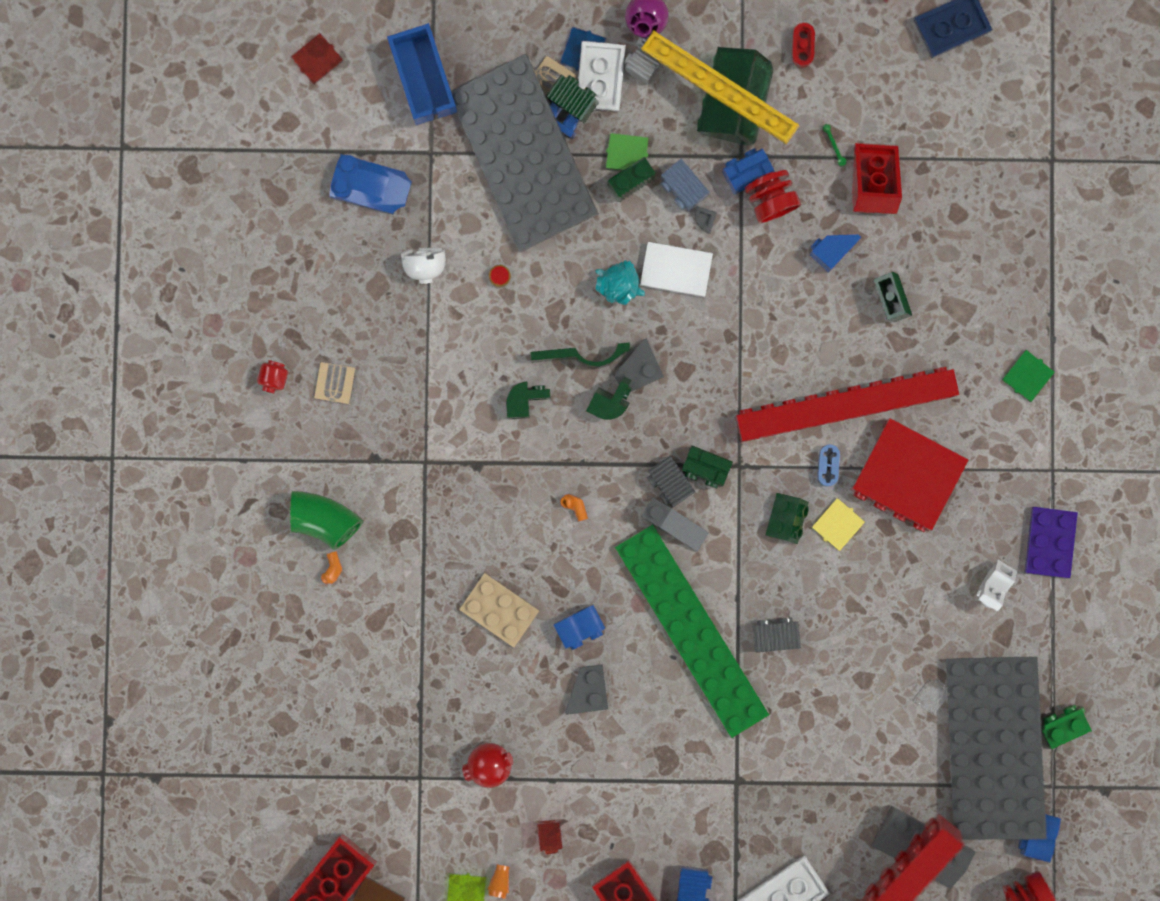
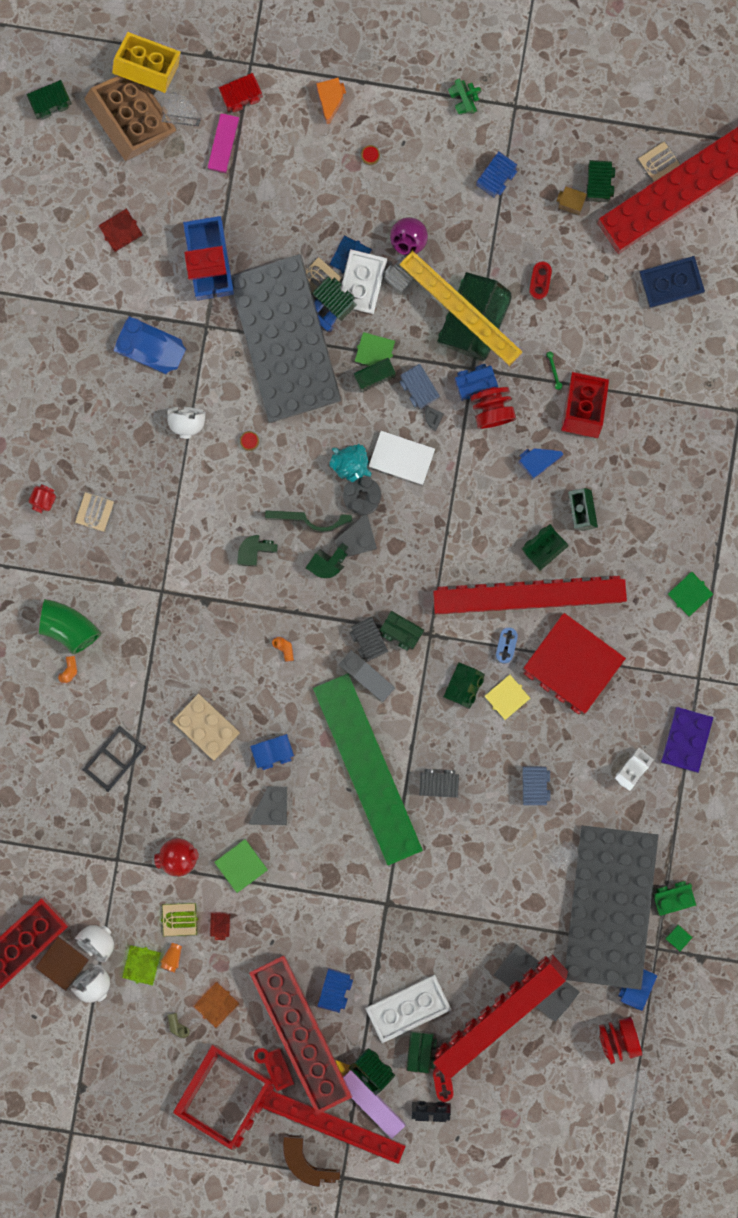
camera: 10 degrees right, 0 degrees up
(385, 653) = (103, 749): none -> black window
(410, 876) = (96, 941): none -> white cylinder
(419, 79) = (205, 263): none -> red plate
(501, 836) = (179, 919): none -> piece
(563, 763) = (241, 866): none -> bright green tile
(637, 331) = (360, 506): none -> dark grey plate
(855, 347) = (544, 547): none -> dark green bracket
(886, 621) = (535, 785): none -> sand blue brick
(1077, 771) = (678, 938): none -> green tile

